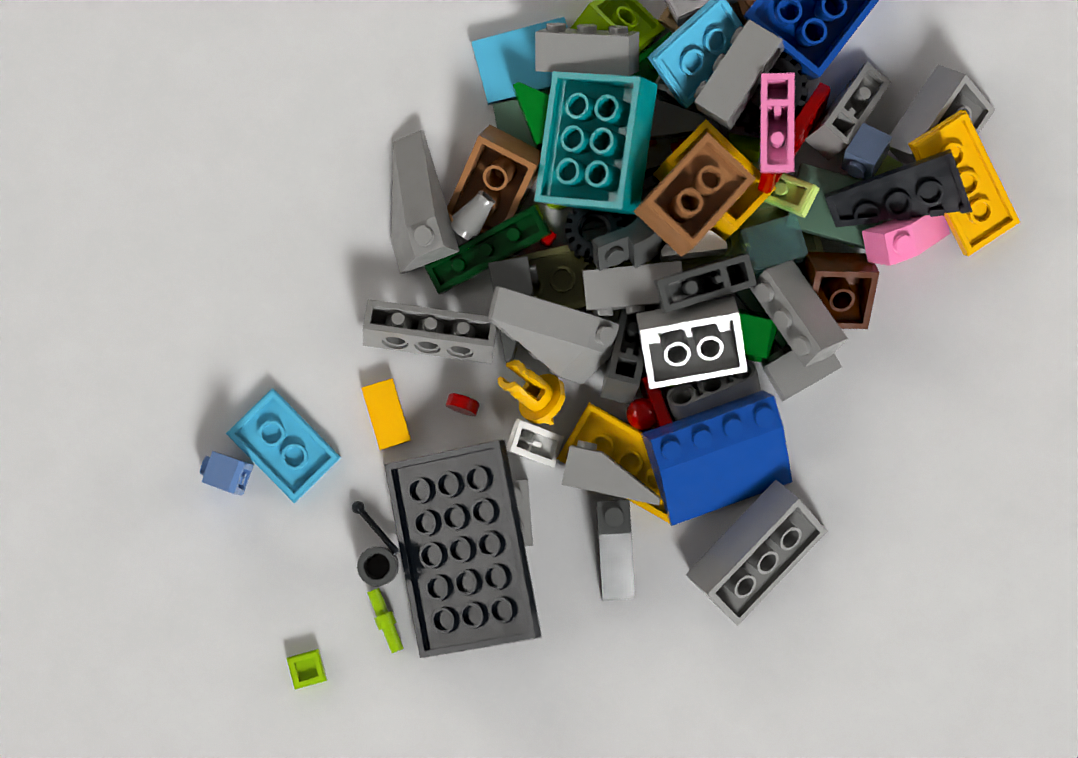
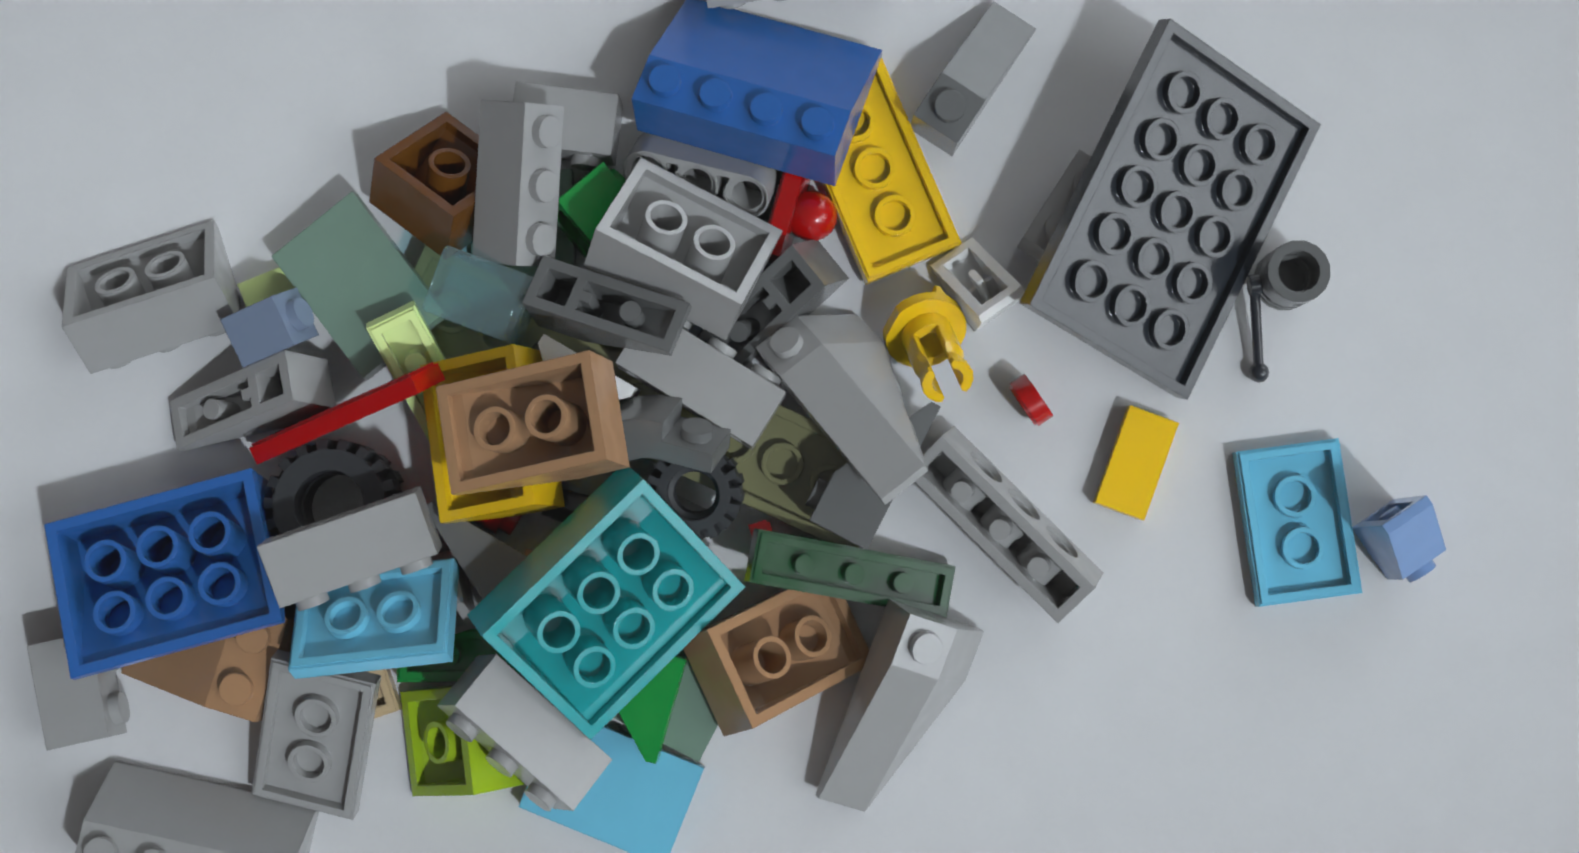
camera: 145 degrees left, 0 degrees up
(306, 669) = (1471, 219): lime tile -> none
(385, 620) = (1329, 201): lime bar -> none
(472, 216) = (840, 630): light grey cone -> none
(598, 472) = (923, 175): light grey slope -> none
(746, 146) = (415, 456): tile -> none
(777, 122) = (350, 440): bright pink slope -> none
(903, 239) = (307, 182): bright pink slope -> none
(913, 190) = (242, 225): black wing -> none
(988, 199) = (177, 197): yellow tile -> none

